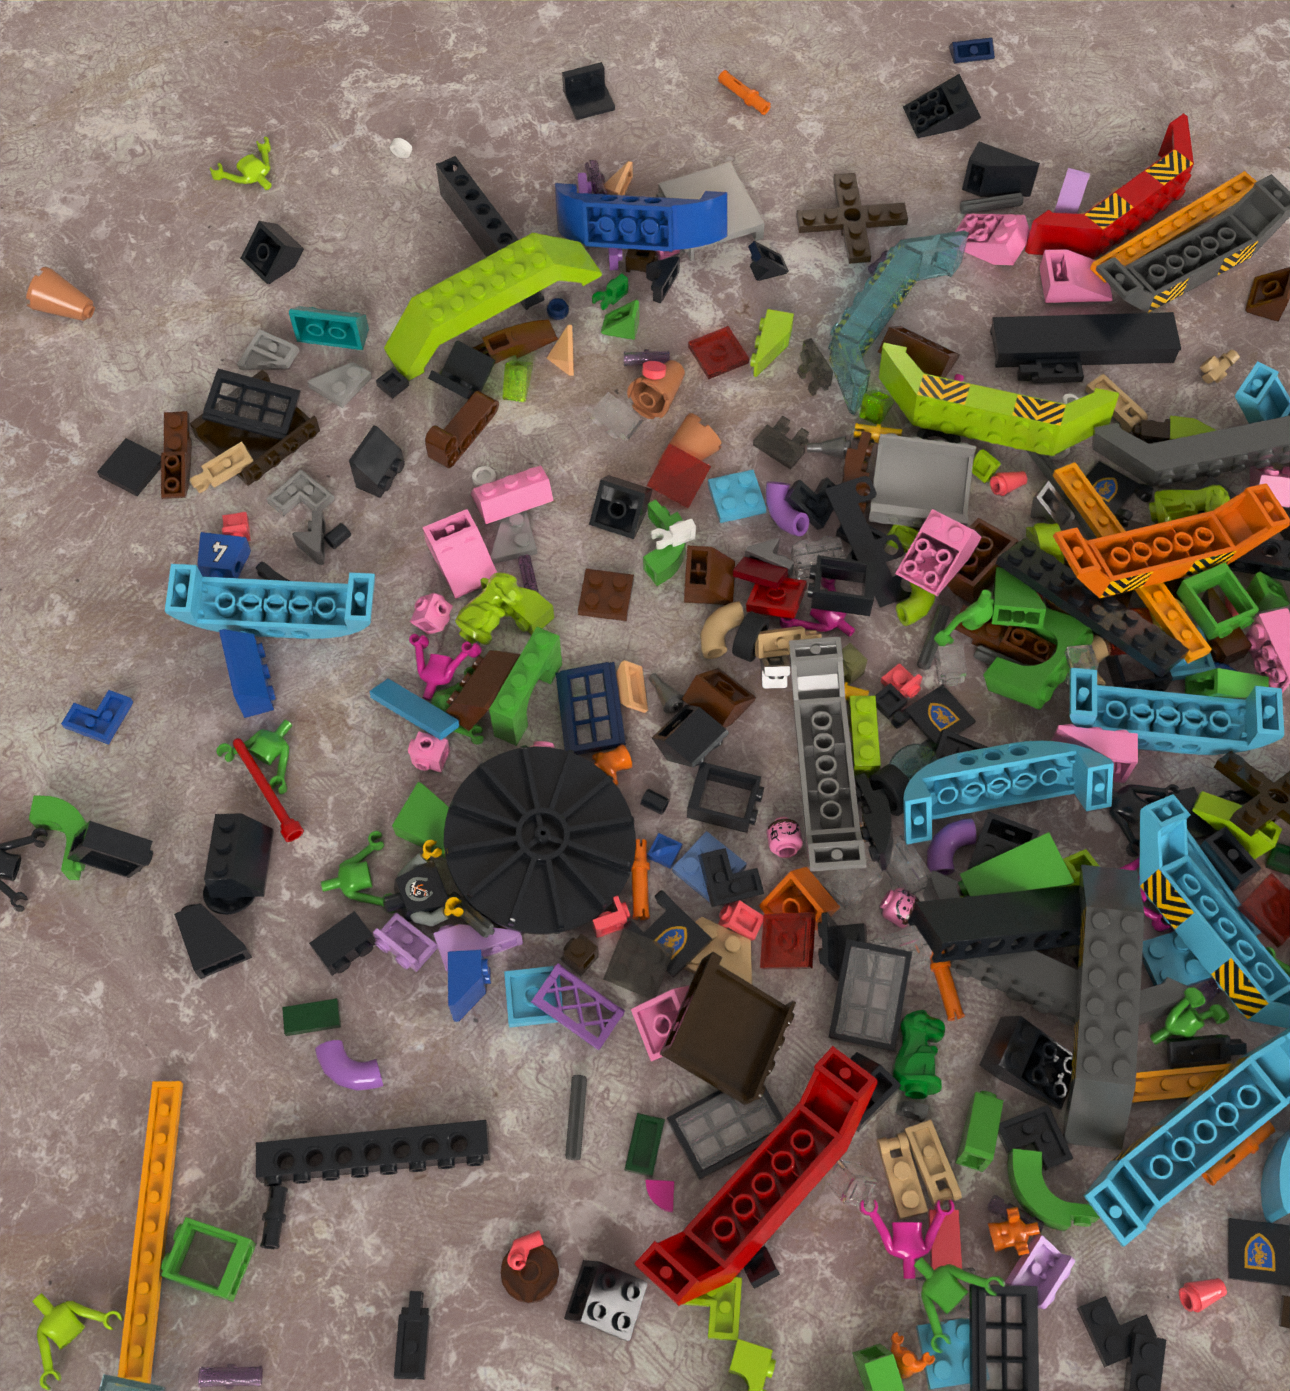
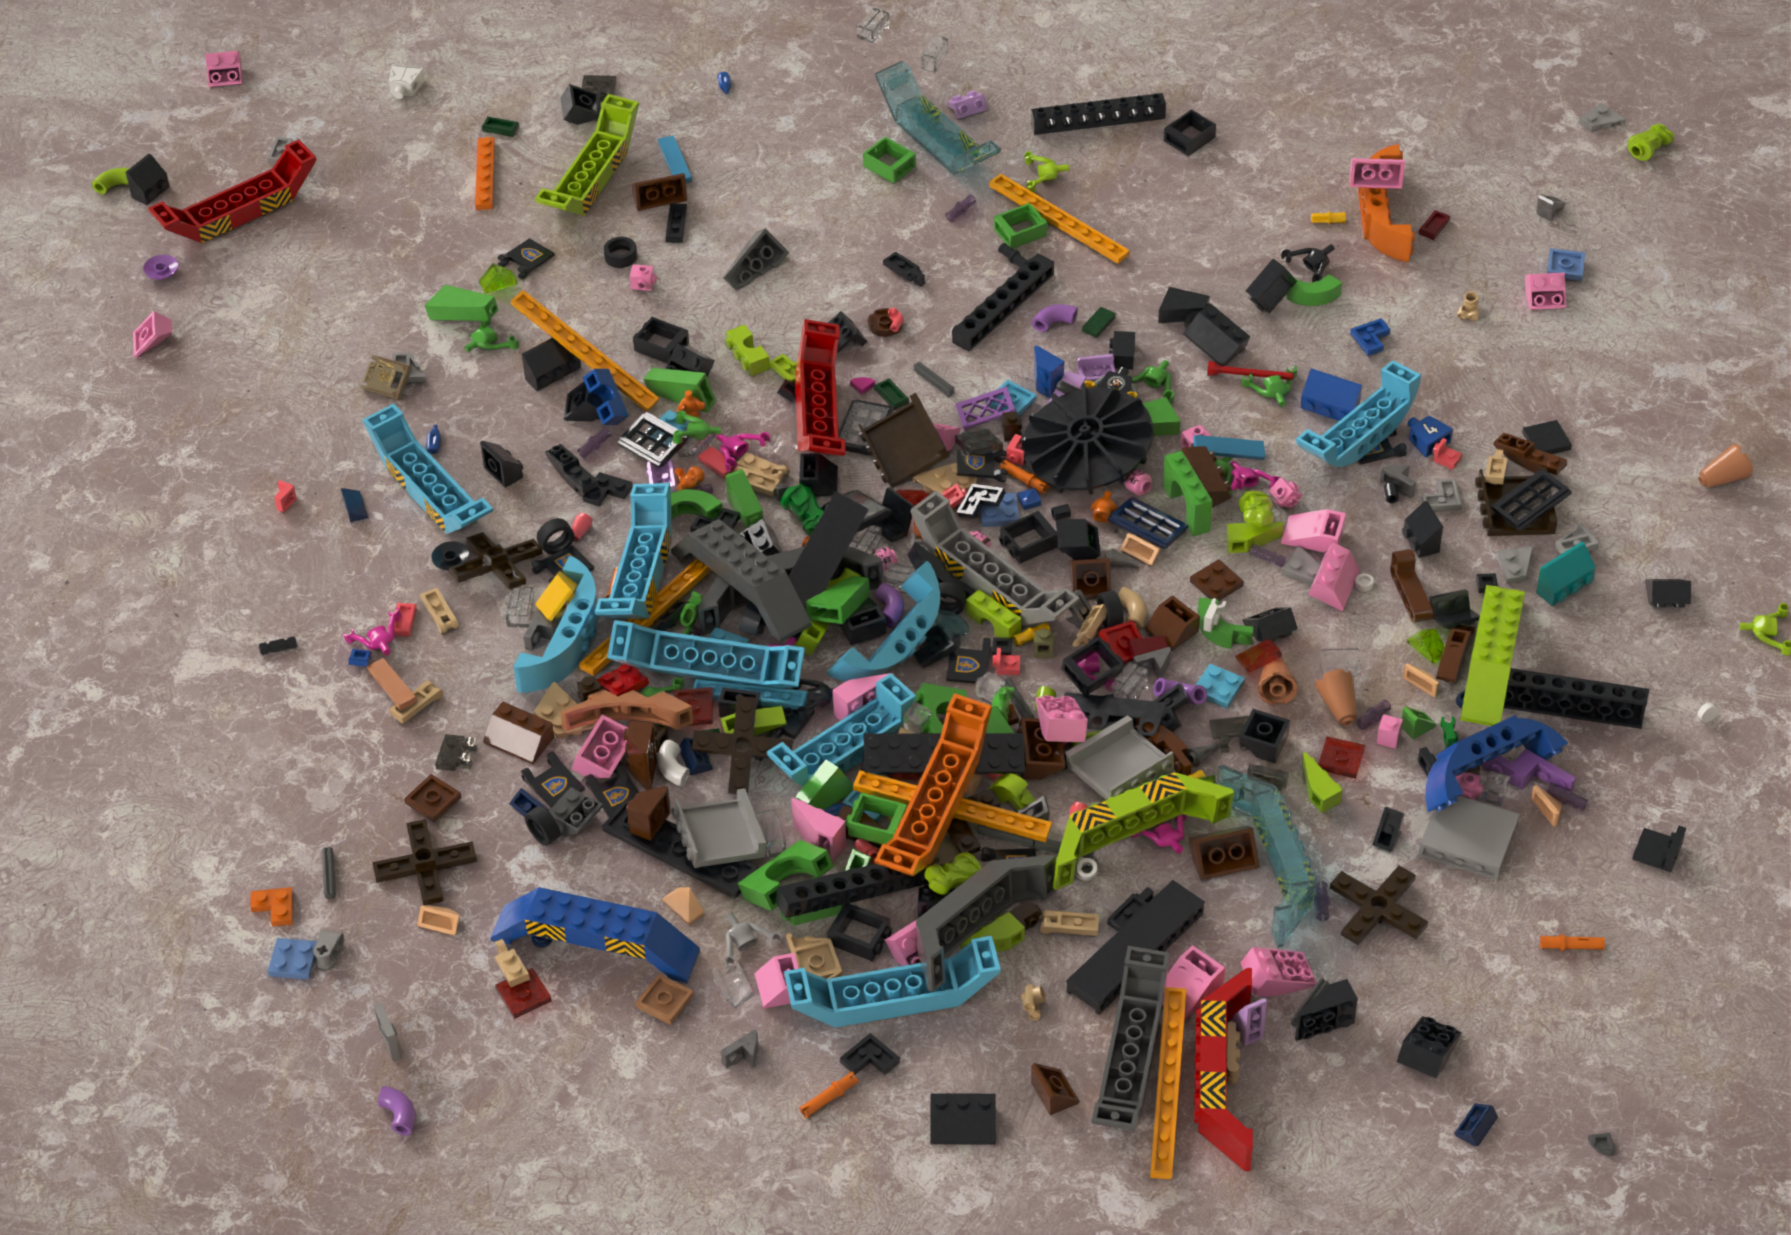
camera: 135 degrees right, 15 degrees down
(654, 370) = (1344, 680): coral tile -> none
(657, 330) = (1389, 731): none -> bright pink brick
(765, 401) = (1265, 735): none -> black slope
(1257, 1294) = (550, 528): none -> black tyre

